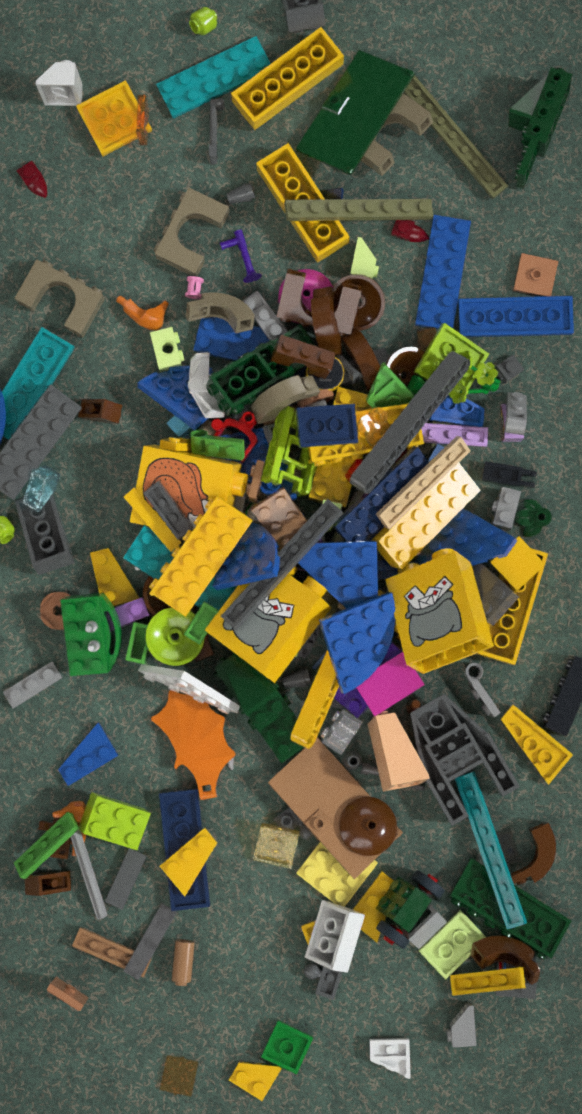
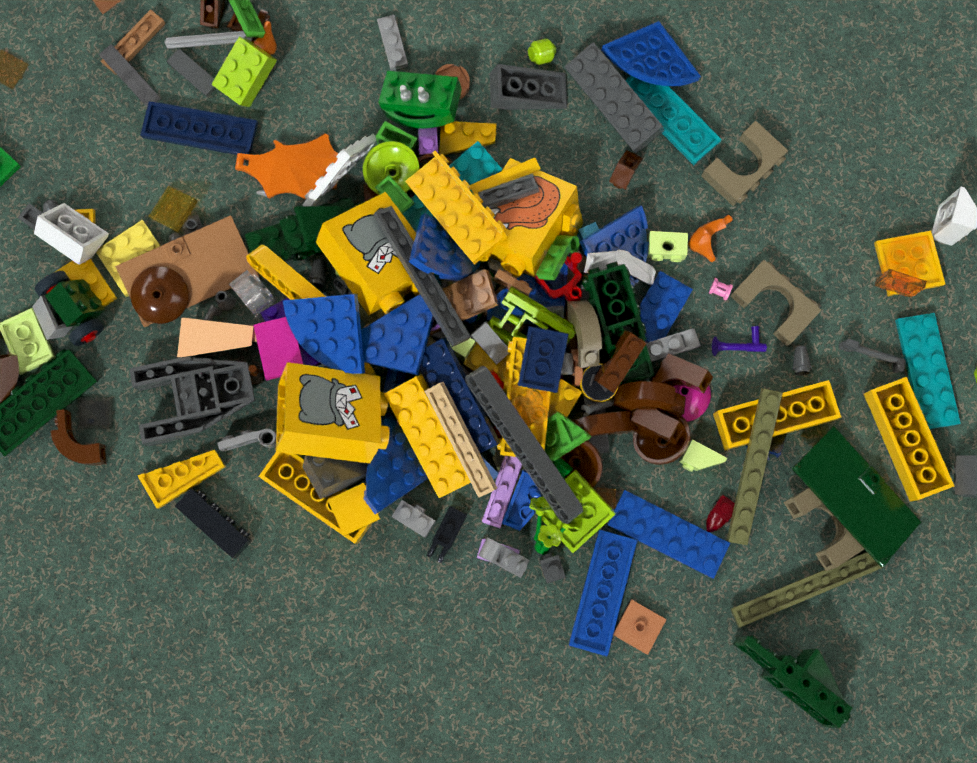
camera: 105 degrees right, 5 degrees down
(33, 179) = (868, 174): dark red plate -> none
(40, 487) = (570, 96): clear light blue slope -> none
(88, 756) = (312, 72): blue wing -> none
(183, 962) = (101, 98): medium nougat brick -> none
(188, 860) = (186, 126): yellow wing -> none
(224, 307) = (694, 308): dark tan arch -> none
(320, 484) = (490, 343): none -> light grey tile
(490, 850) = (94, 400): teal plate -> none
(529, 517) = (397, 541): dark green plate -> none

